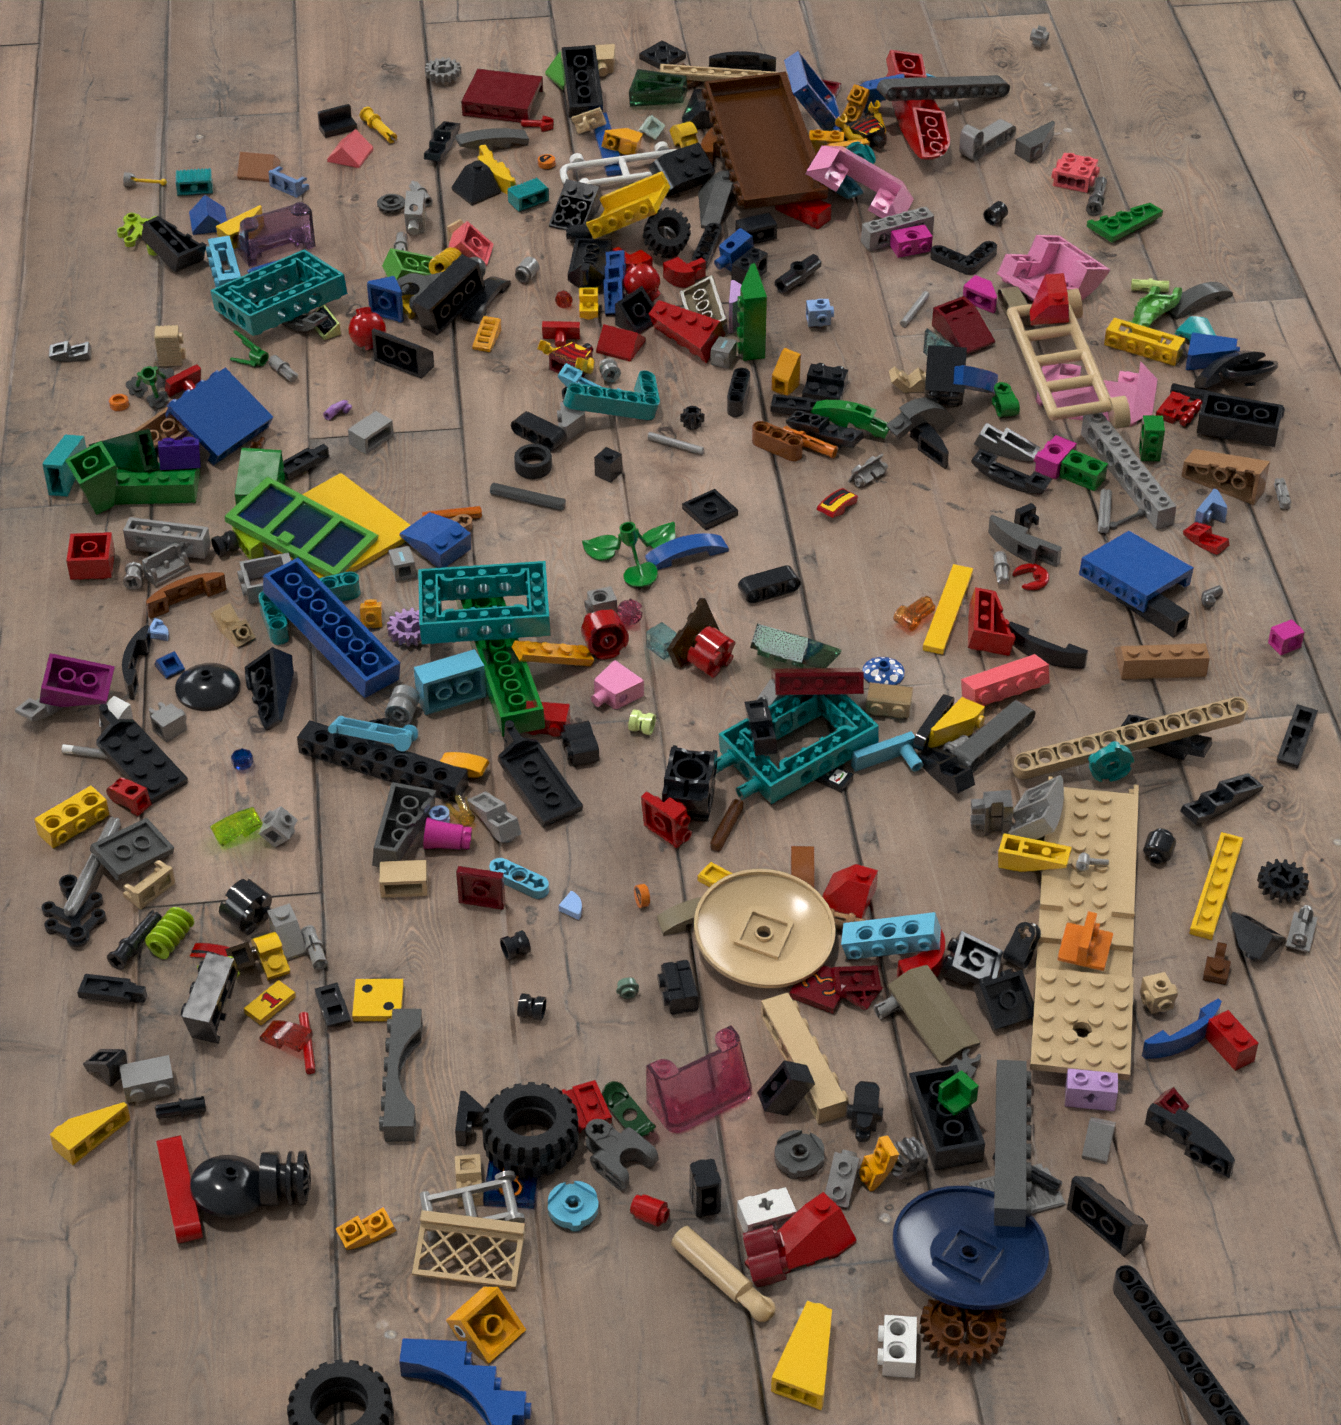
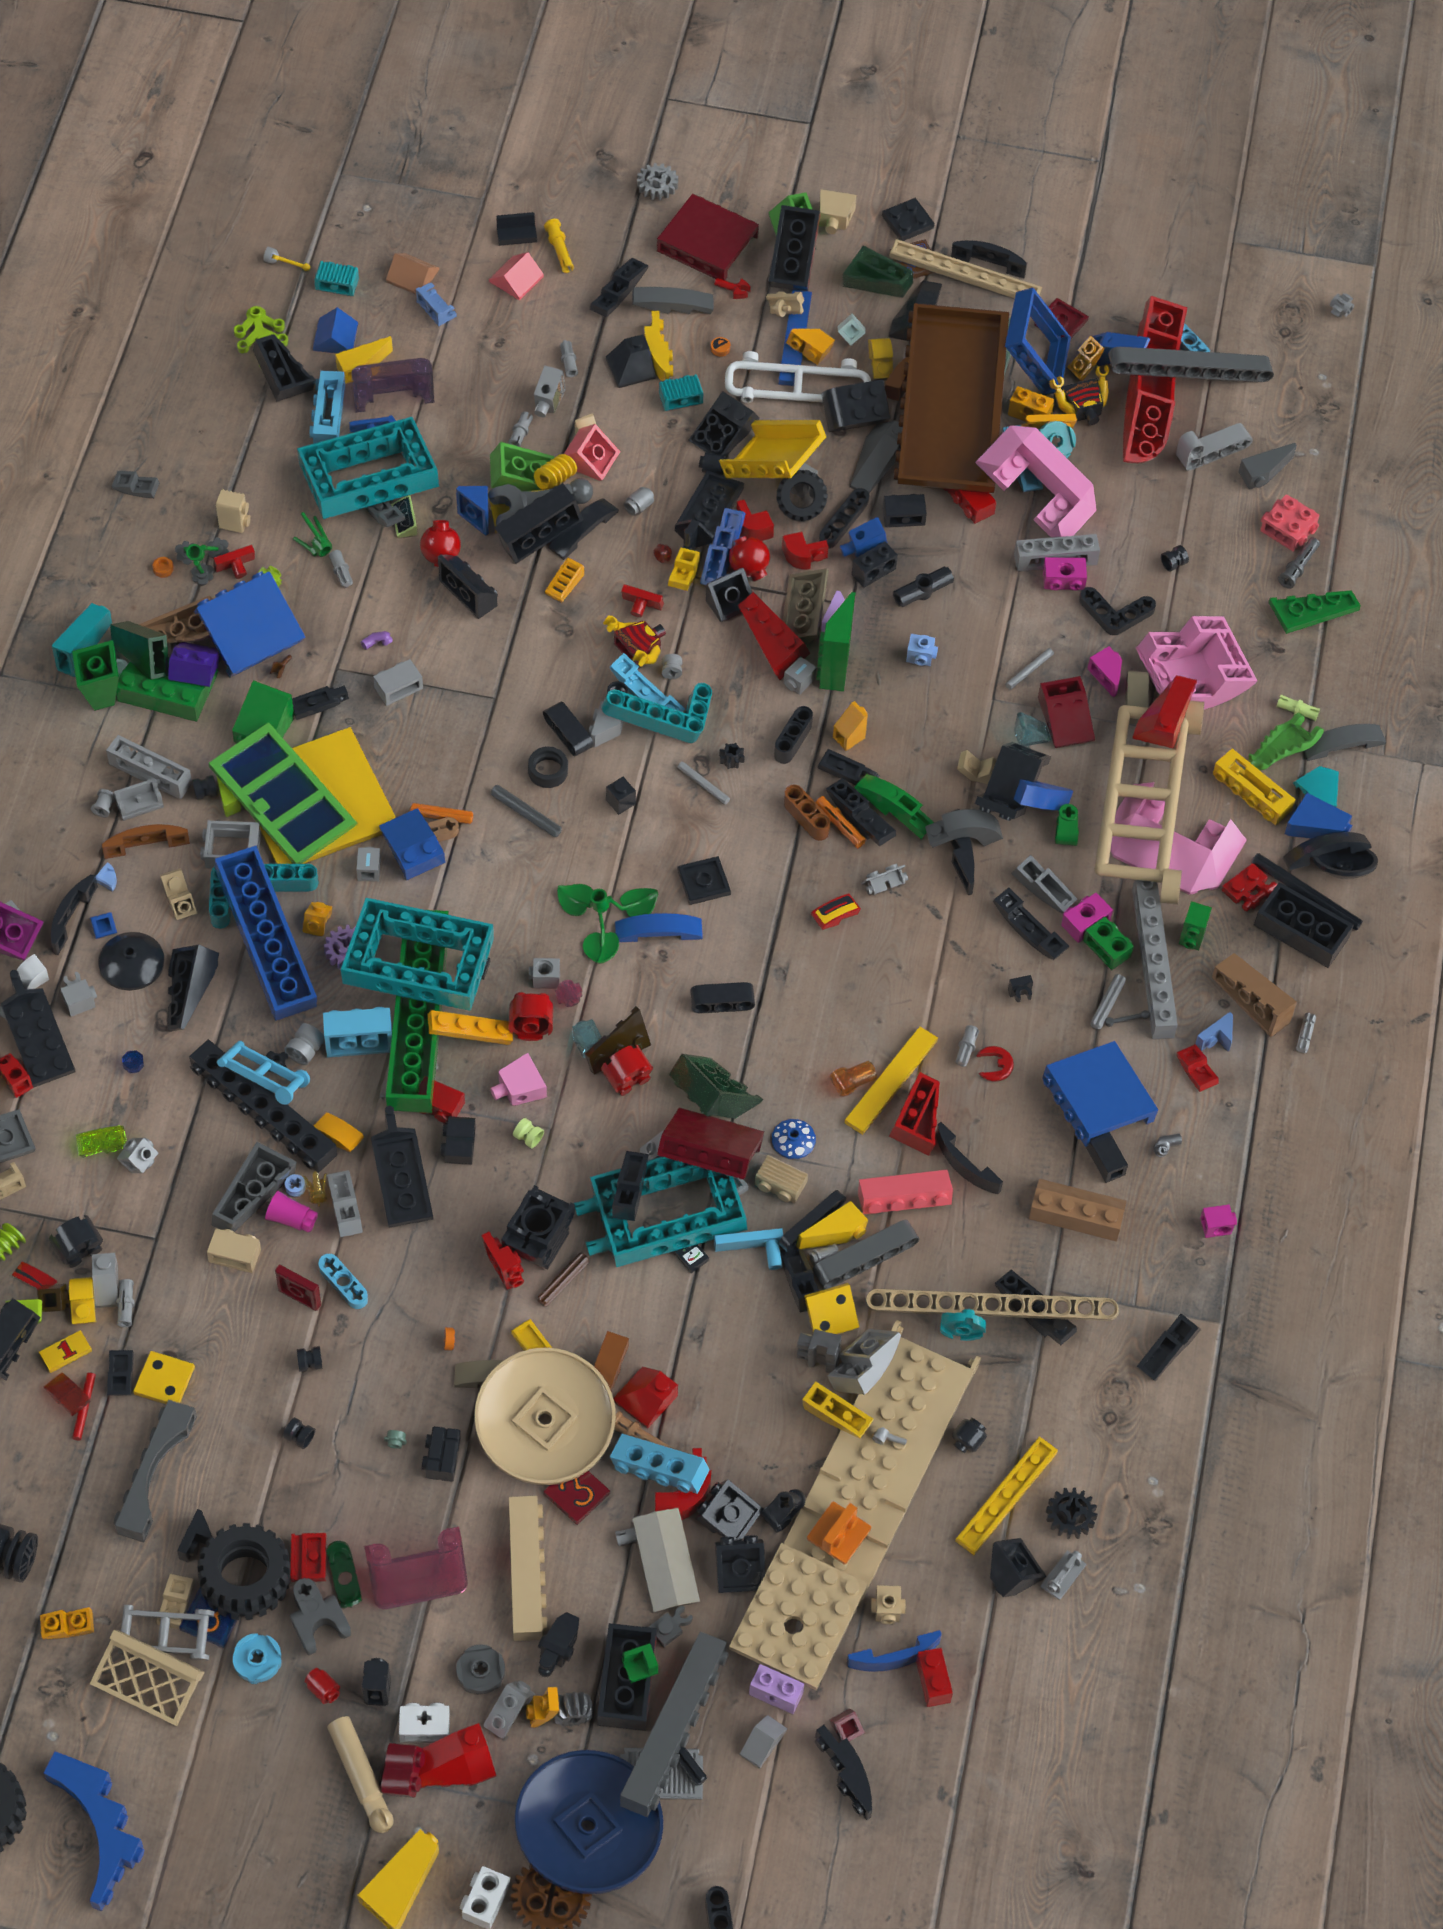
camera: 15 degrees right, 15 degrees up
(90, 555) = (68, 768): red brick -> none
(391, 203) = (532, 357): dark grey gear -> none
(486, 1323) = (135, 1756): light orange slope -> none
(571, 905) = (380, 1328): light blue tile -> none
(619, 343) = (698, 630): red slope -> none
(785, 1088) = (491, 1601): black brick -> none
(825, 382) = (890, 747): black plate -> none
(857, 983) = (610, 1503): dark red slope -> none
(986, 776) = (832, 1309): none -> yellow tile
(1019, 543) = (997, 1015): dark grey slope -> none
(1106, 1215) = (731, 1825): black slope -> none
(1216, 967) = (962, 1590): reddish brown plate -> none
(1225, 797) = (1058, 1397): black slope -> none

